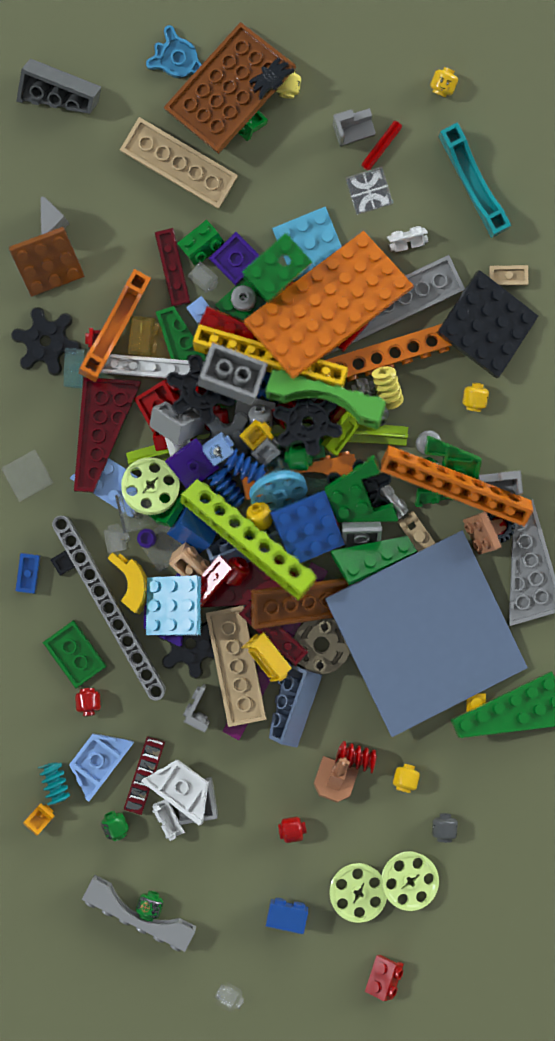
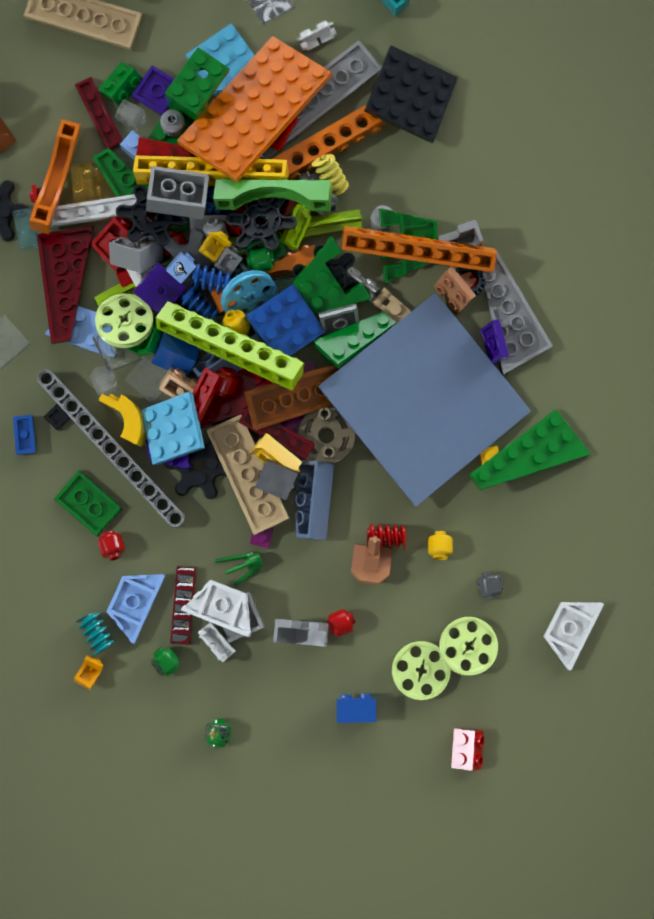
camera: 20 degrees left, 5 degrees down
(146, 538) = (132, 372): dark purple plate -> none
(174, 931) = (170, 734): light grey arch -> none
(196, 720) = (212, 529): light grey bracket -> none
(220, 751) = (252, 562): none -> green plant
(229, 997) = (318, 805): clear head -> none
(252, 829) = (301, 632): none -> light grey panel
(262, 680) = (276, 479): none -> black piece
(475, 397) = (417, 166): yellow head -> none
(508, 593) = (494, 341): none -> dark purple plate
(509, 275) = (421, 45): tan plate -> none
(512, 888) = (571, 629): none -> white wing

